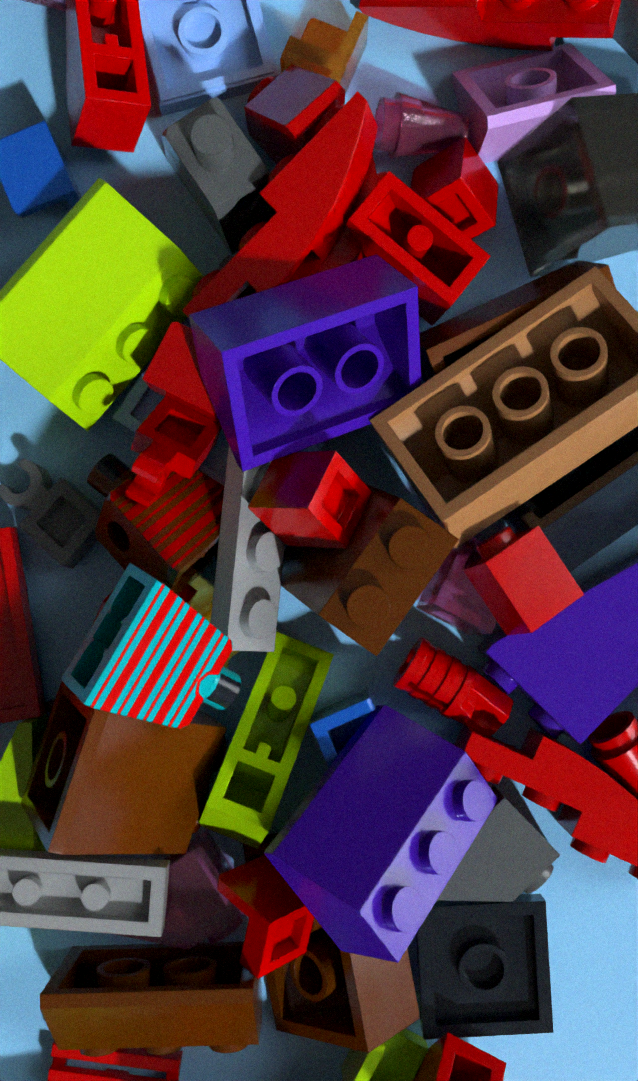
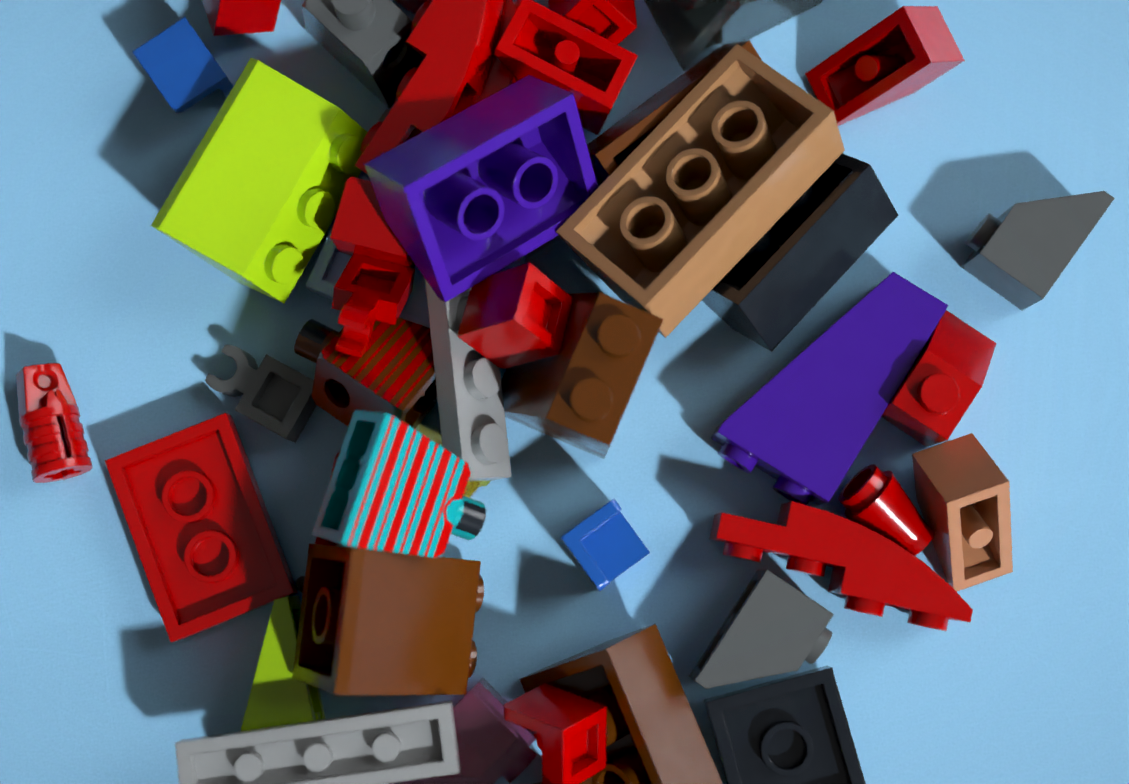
camera: 15 degrees left, 5 degrees down
(266, 742) = (521, 571): lime slope -> none
(382, 834) = (654, 623): dark purple slope -> none
(452, 688) = (695, 479): red hinge -> none
(454, 598) = (688, 375): clear pink panel -> none
(522, 579) = (734, 351): red brick -> none

